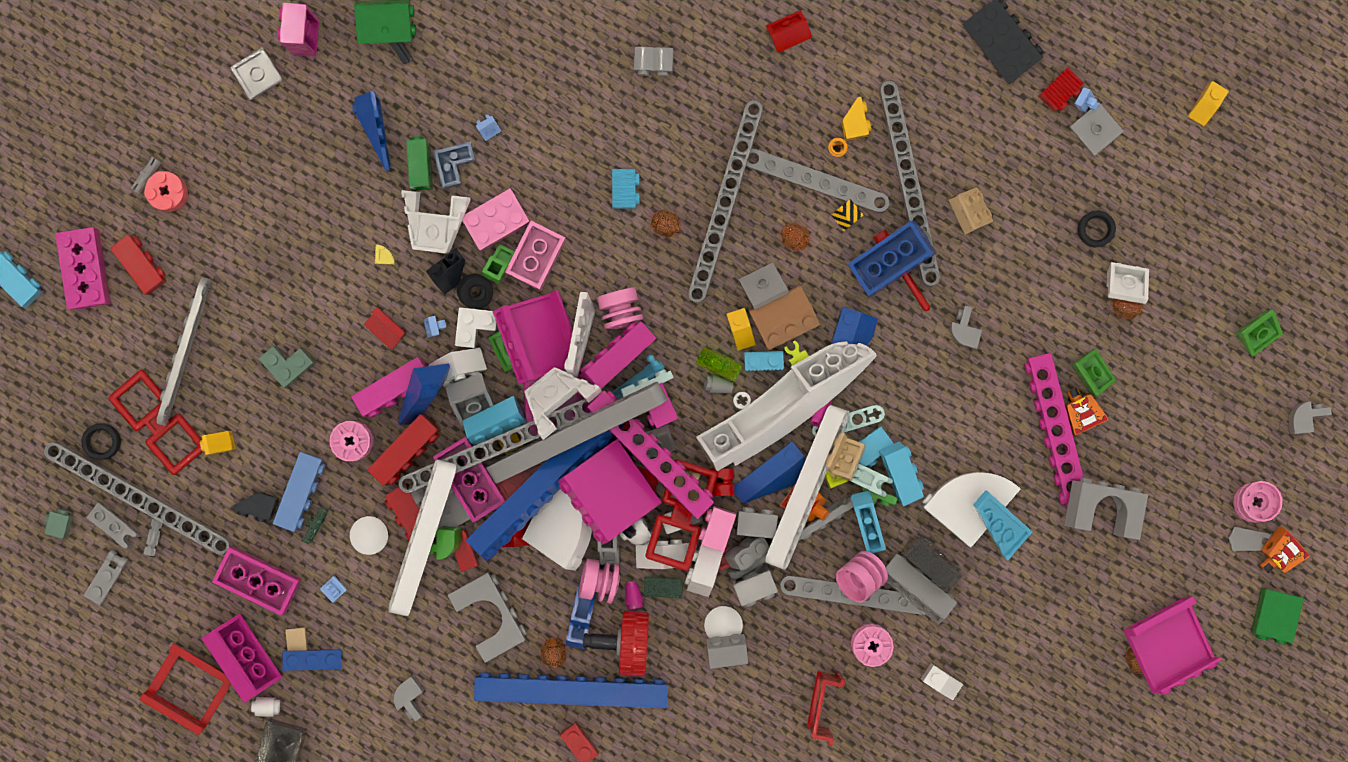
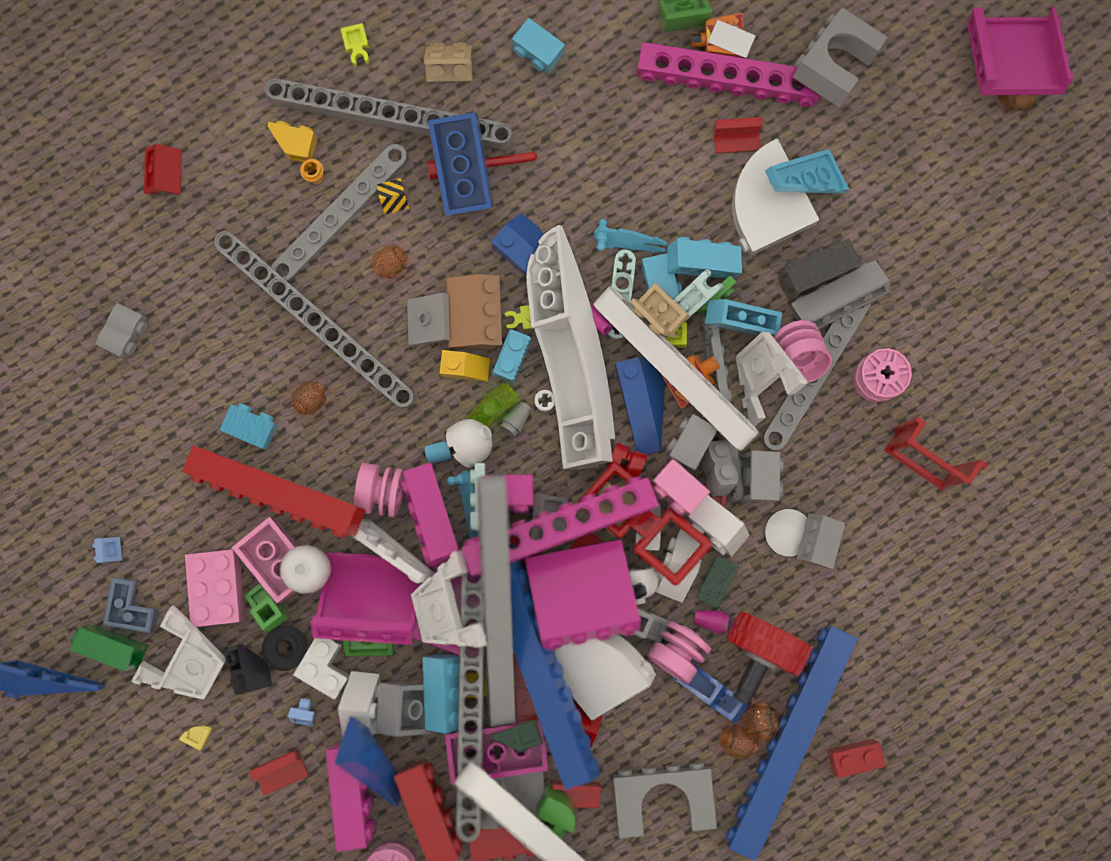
camera: 70 degrees left, 5 degrees down
(488, 492) = (520, 736): none -> dark green tile
(538, 282) = (305, 569): none -> white cylinder
(576, 663) = (762, 721): none -> clear orange head
(584, 232) = (273, 491): none -> red brick
(667, 338) = (438, 452): none -> medium azure brick
(685, 359) = (470, 441): none -> white cylinder
(836, 550) = (759, 367): none -> white wing
(891, 405) = (625, 239): none -> medium azure piece
(941, 681) = (952, 318): white slope -> none
(956, 130) = (355, 41): none -> neon yellow plate
(961, 332) = (578, 128): light grey brick -> none
(1011, 457) = (737, 135): none -> red panel
(1013, 273) = (538, 46): none -> medium azure brick
(1084, 420) = (731, 38): none -> white sticker

